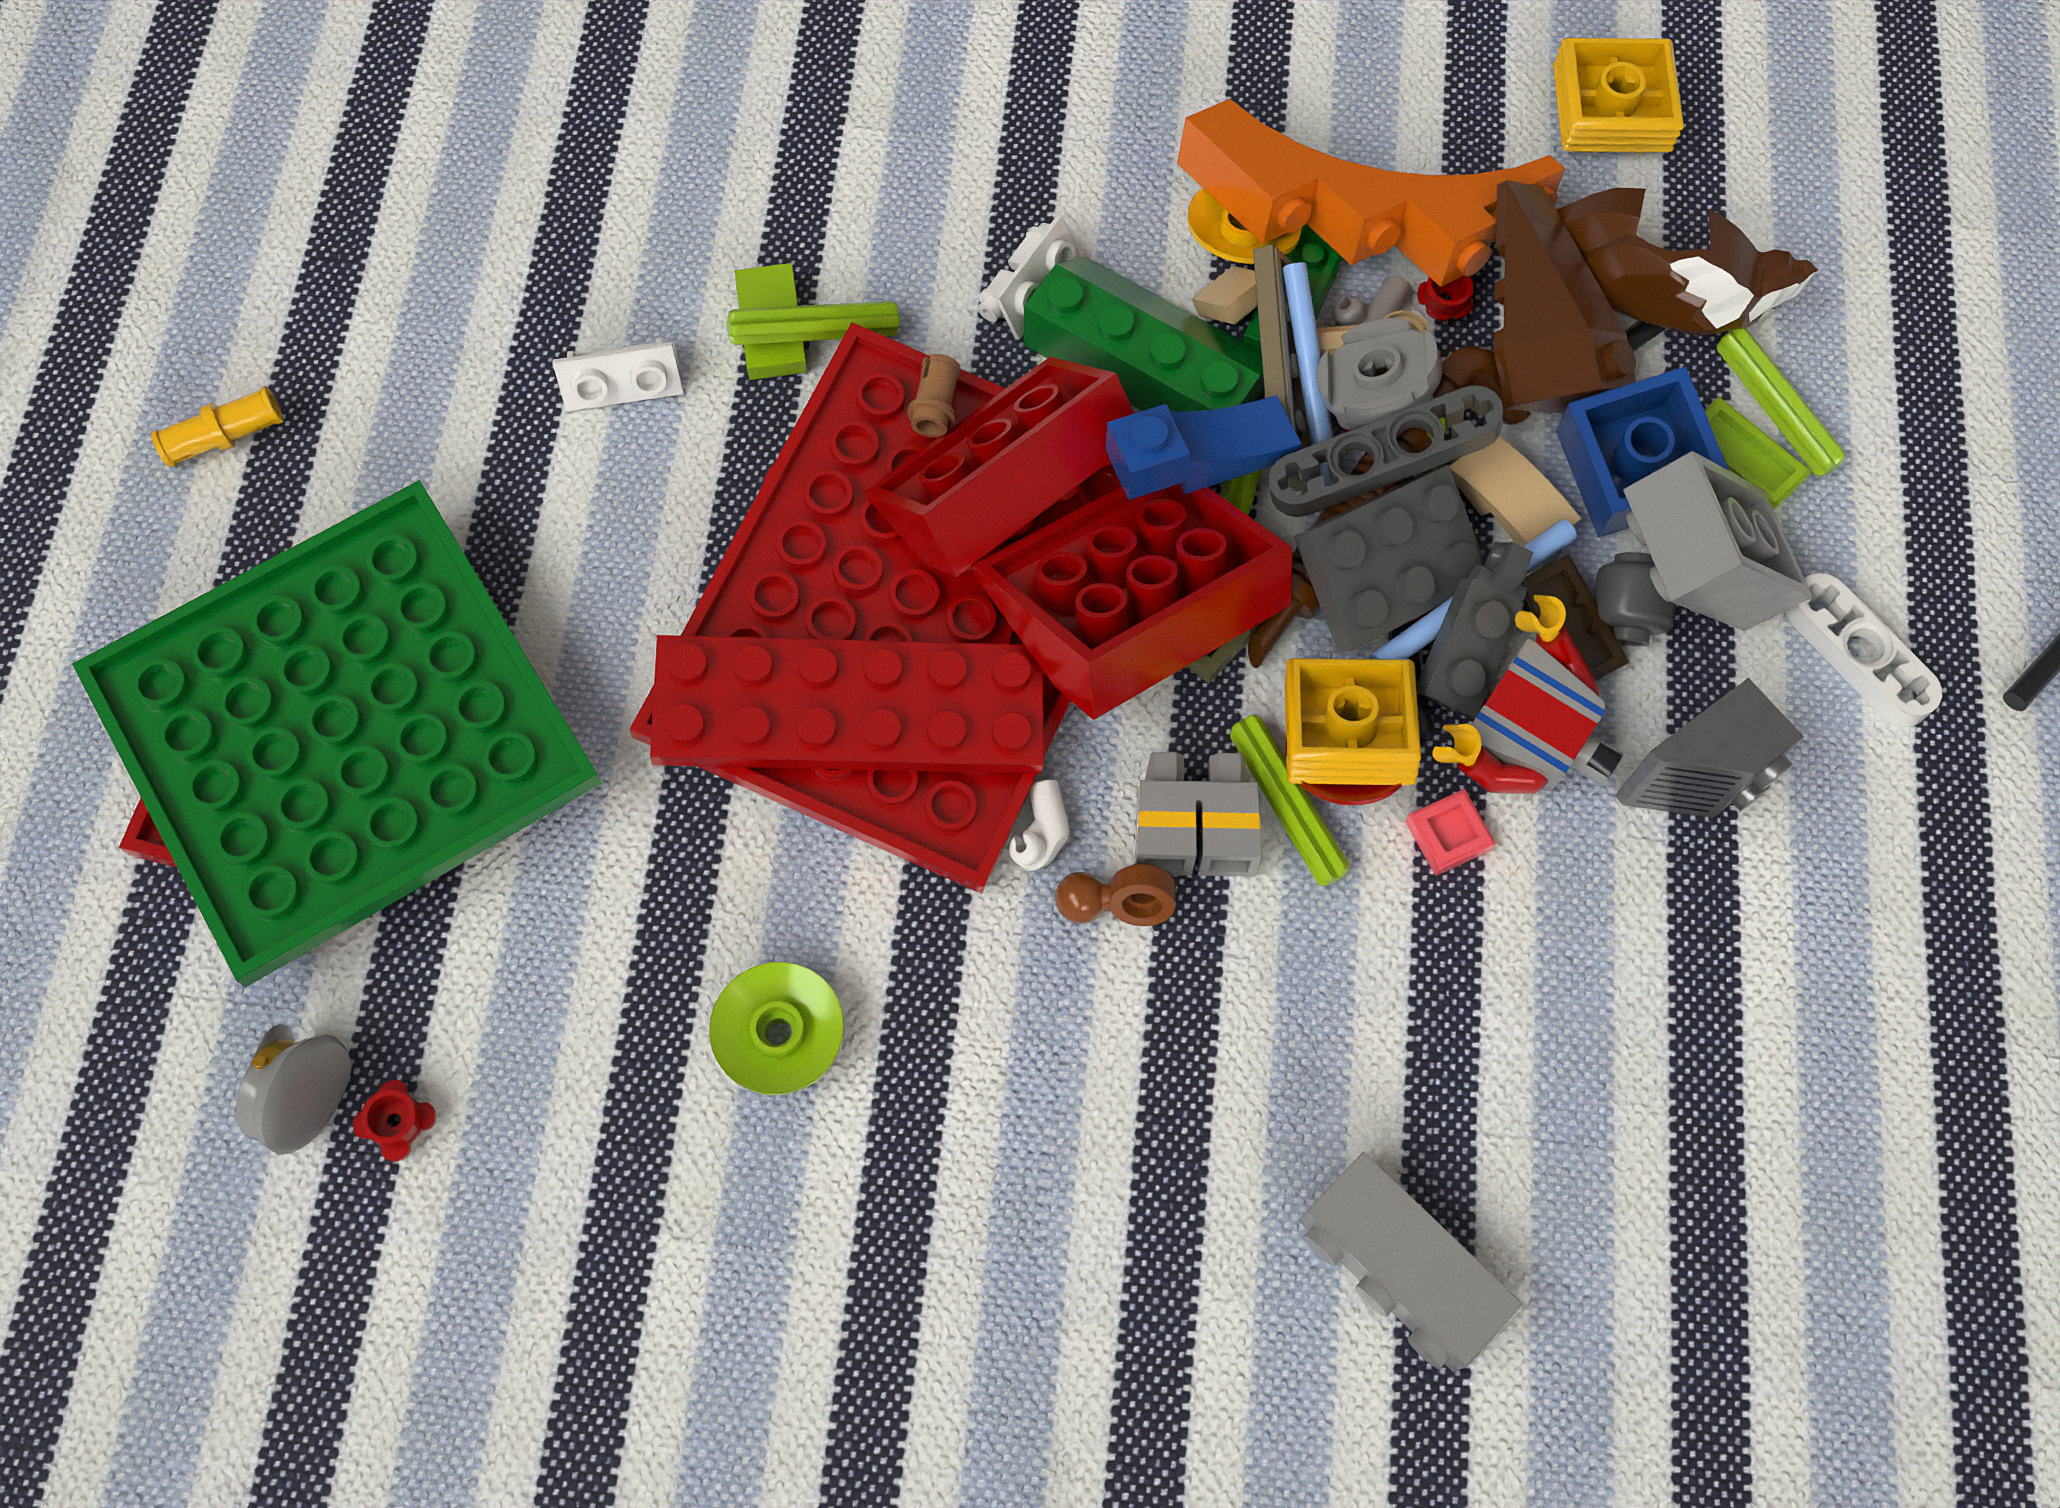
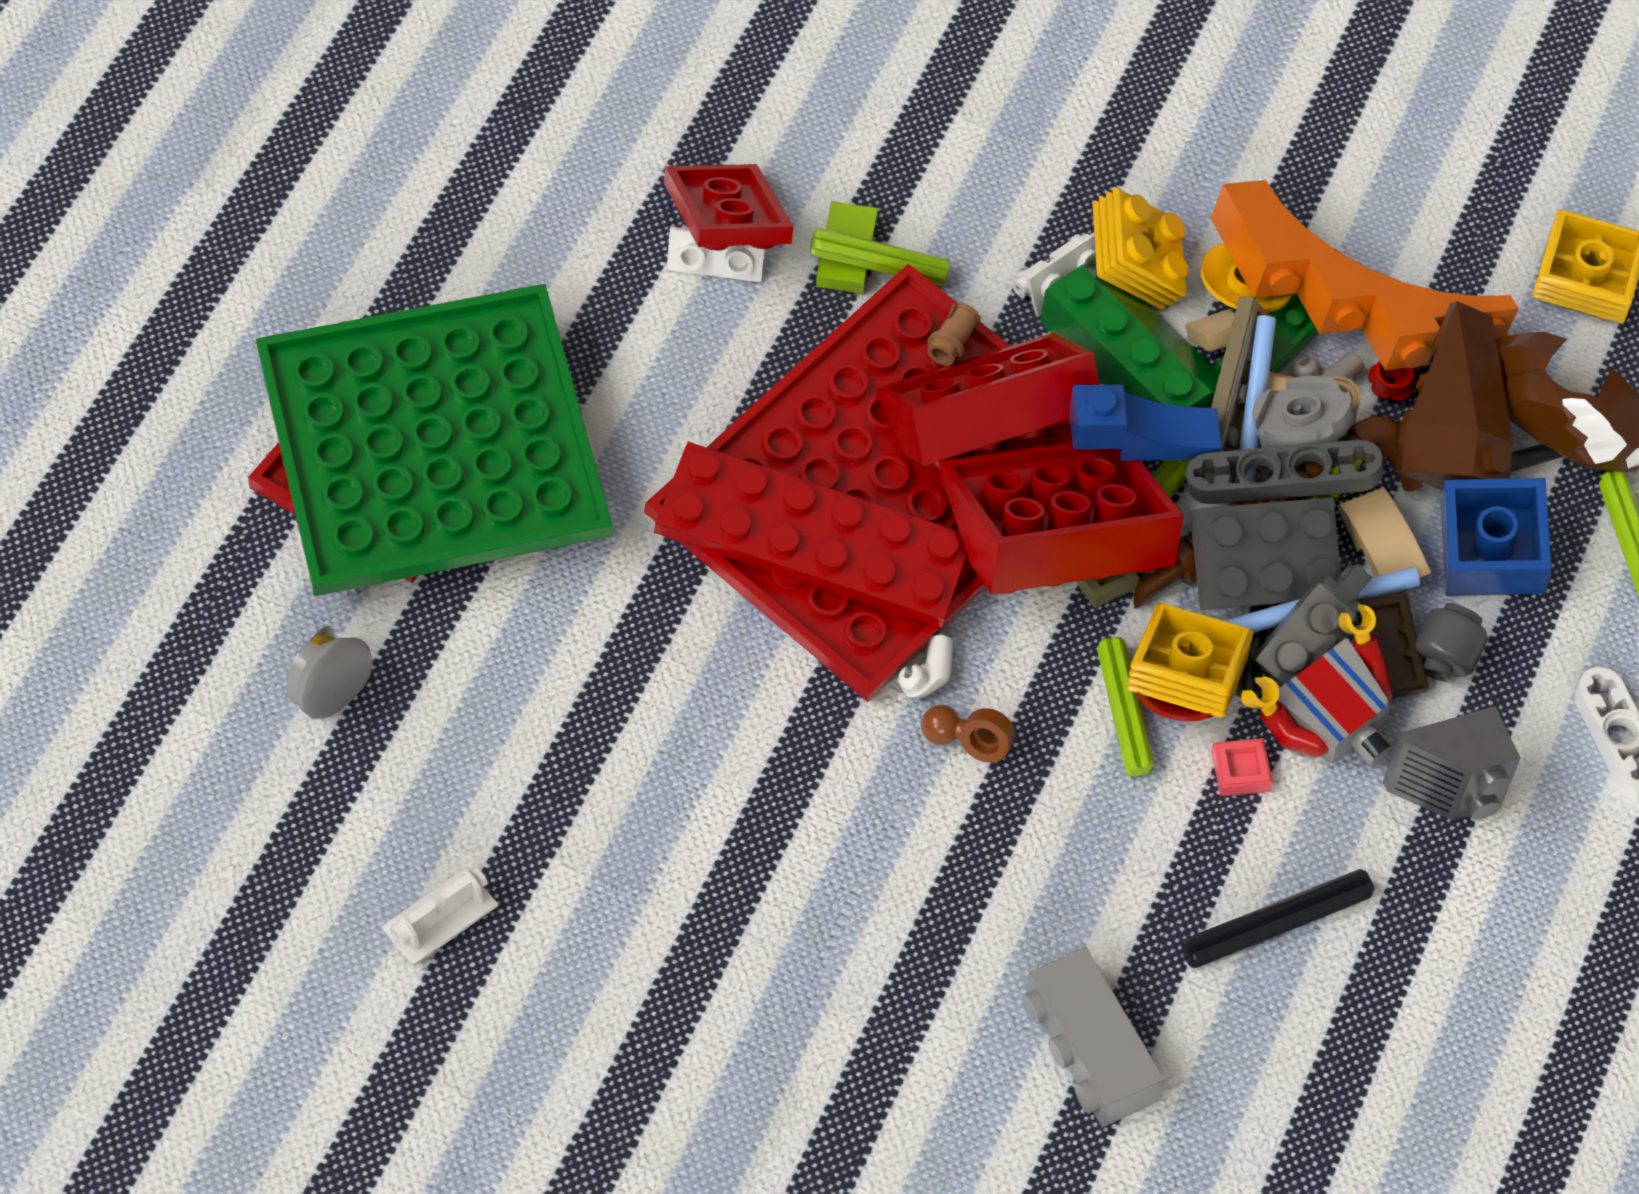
camera: 15 degrees right, 10 degrees down
(217, 426) = (401, 204): yellow pin -> none
(379, 1108) = (388, 708): red plate -> none
(536, 1374) = (440, 915): none -> white hinge
(614, 314) = (728, 206): none -> red plate
(762, 999) = (681, 723): lime dish -> none
(1112, 222) = (1139, 248): none -> yellow brick
(1226, 813) = (1070, 694): light grey hips -> none
(1562, 1019) = (1277, 918): none -> black axle
(1714, 543) = (1518, 612): light grey brick -> none
(1755, 454) = (1587, 570): lime tile -> none

